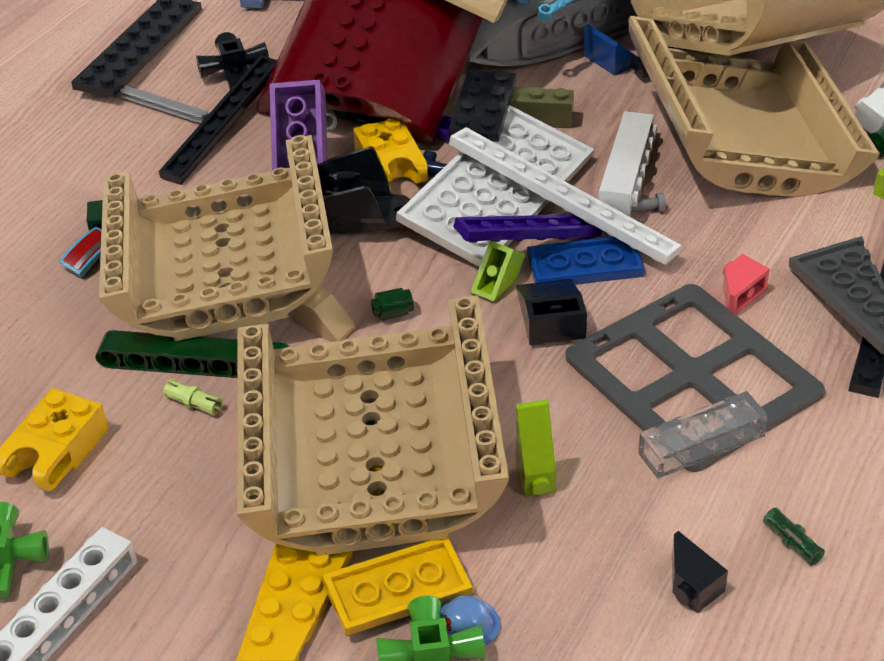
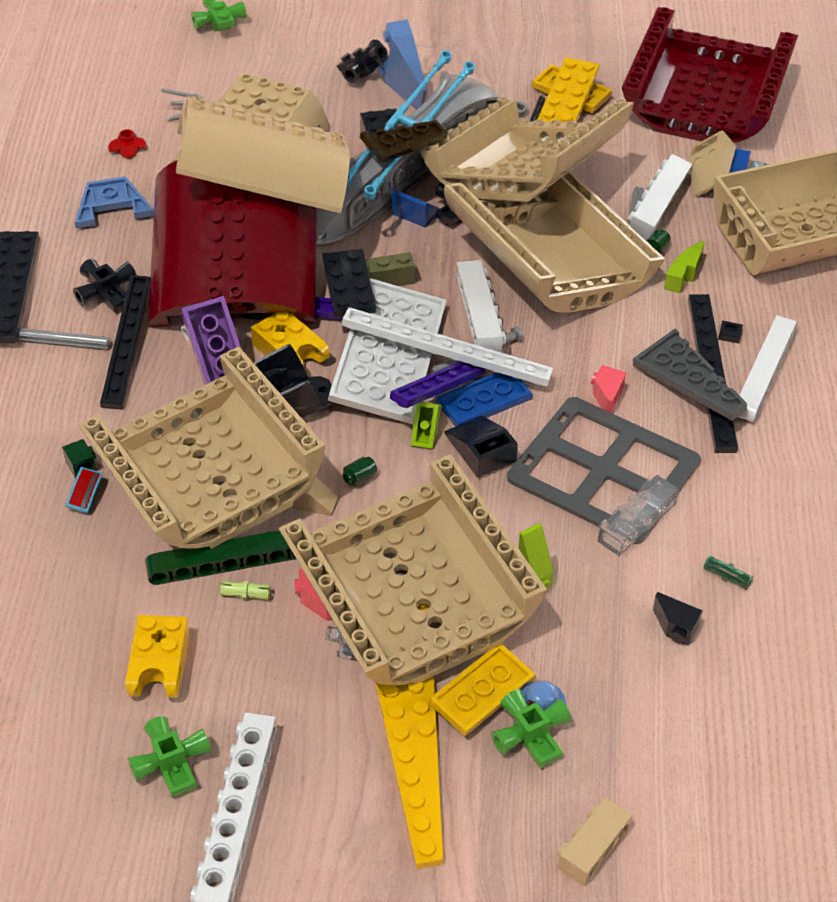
camera: 25 degrees left, 5 degrees up
(433, 165) = (332, 344): dark blue arm -> none

